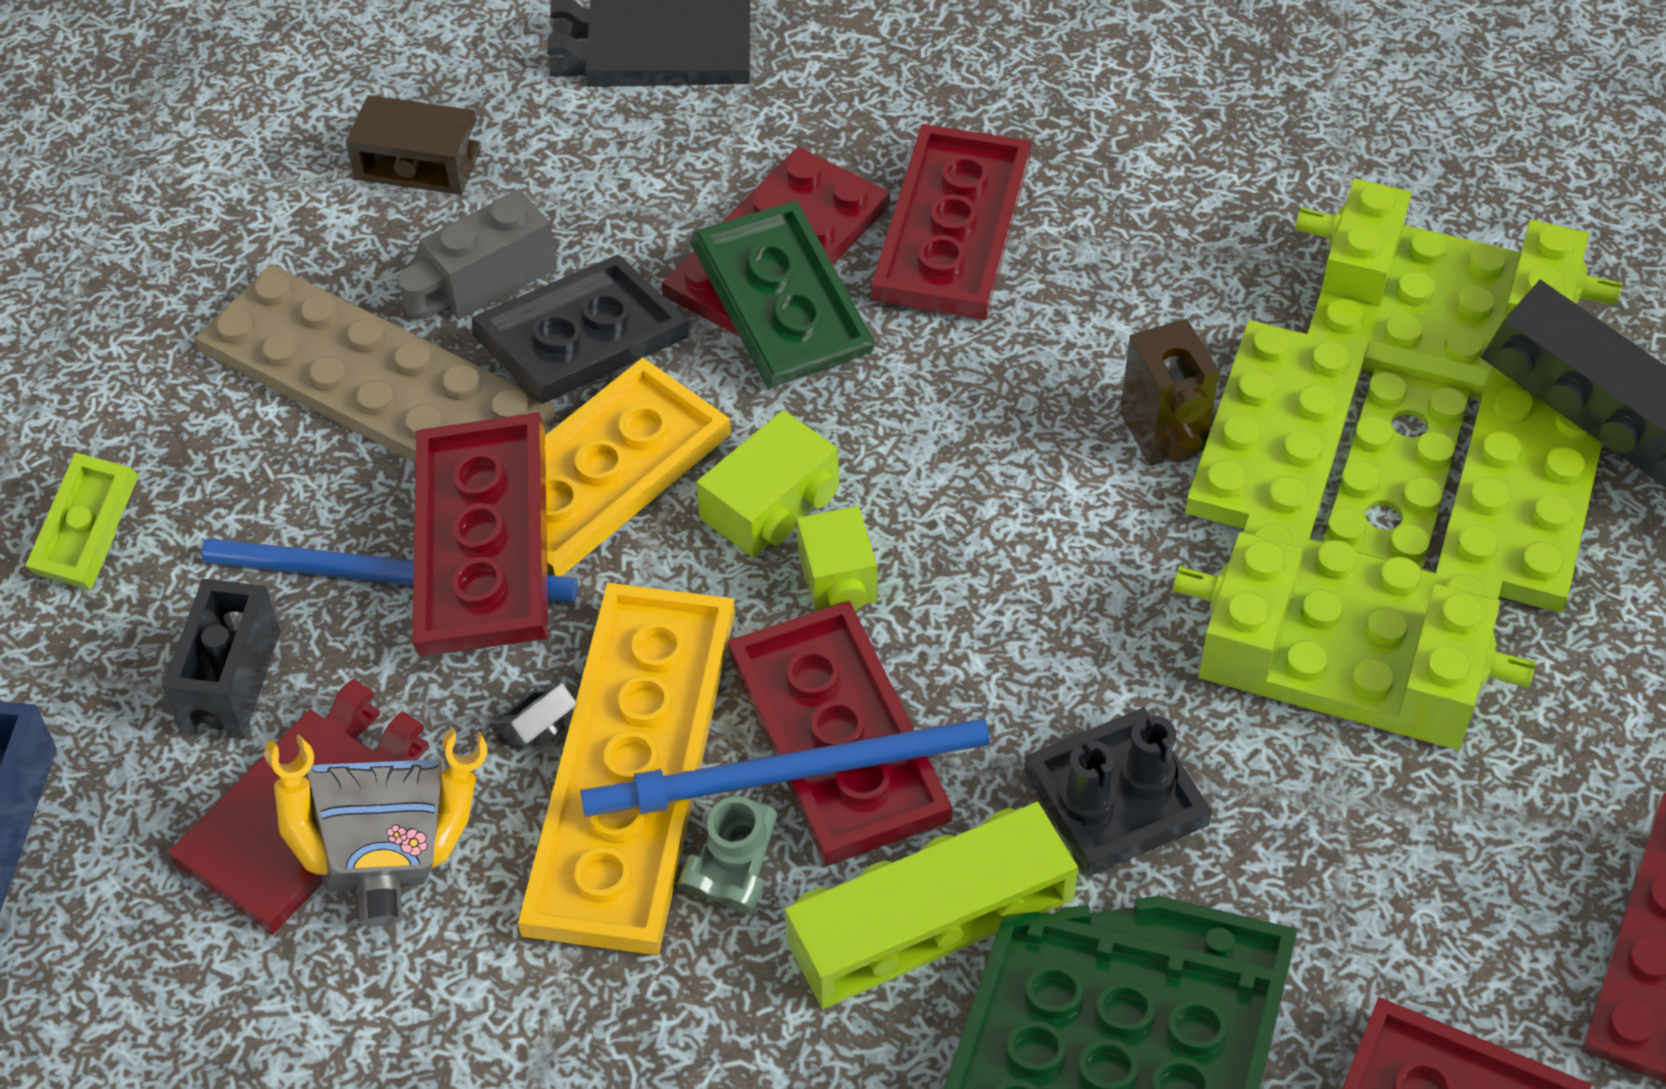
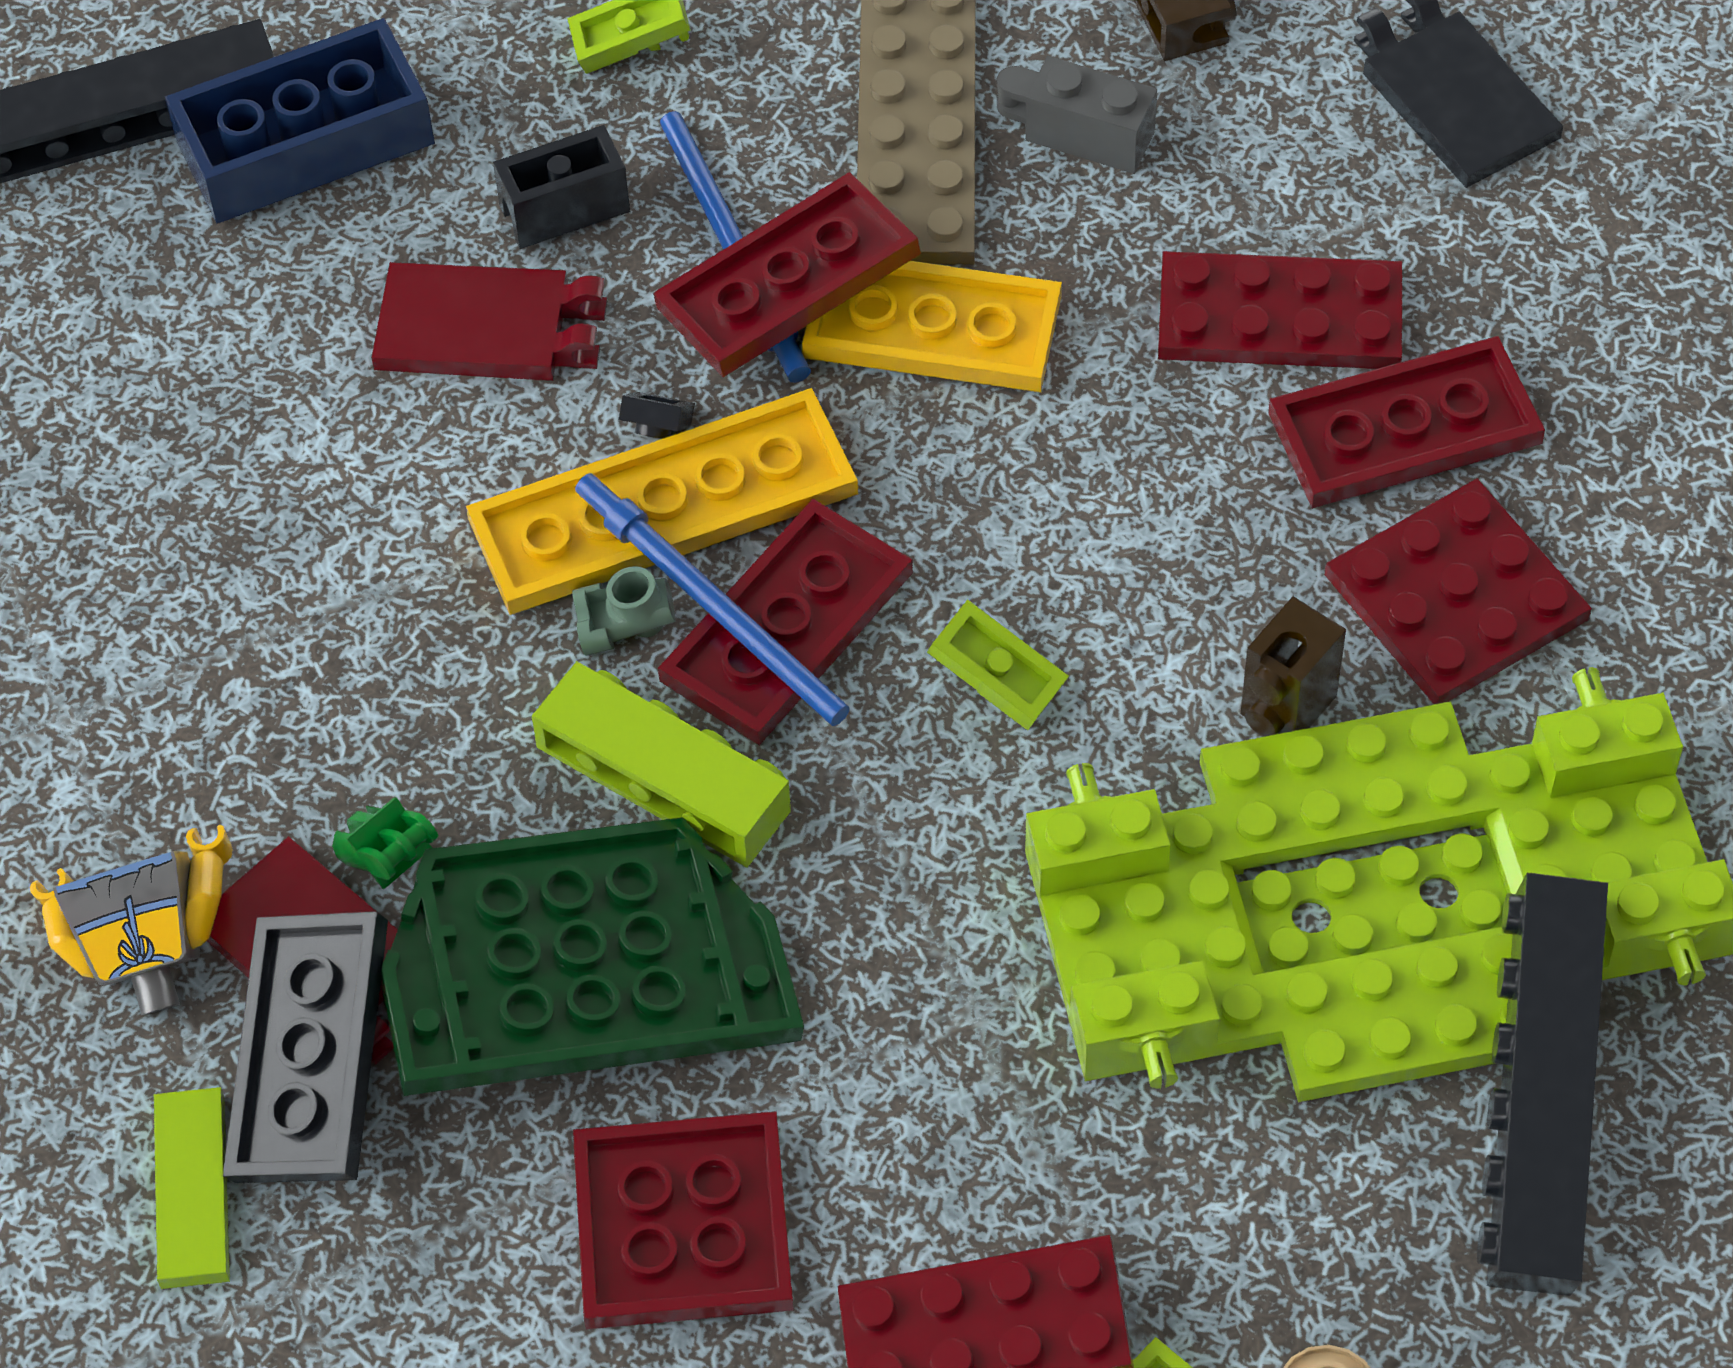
camera: 60 degrees right, 5 degrees up
(374, 821) = (480, 361): torso -> none
(579, 328) = (1060, 222): black plate -> none
(769, 484) = (995, 442): lime brick -> none
(782, 293) = (1204, 338): dark green tile -> none
(837, 558) = (949, 531): lime brick -> none
(1003, 594) = (997, 664): none -> lime plate
(1118, 790) = (859, 841): black plate -> none
(1132, 270) = (1457, 592): none -> dark red plate

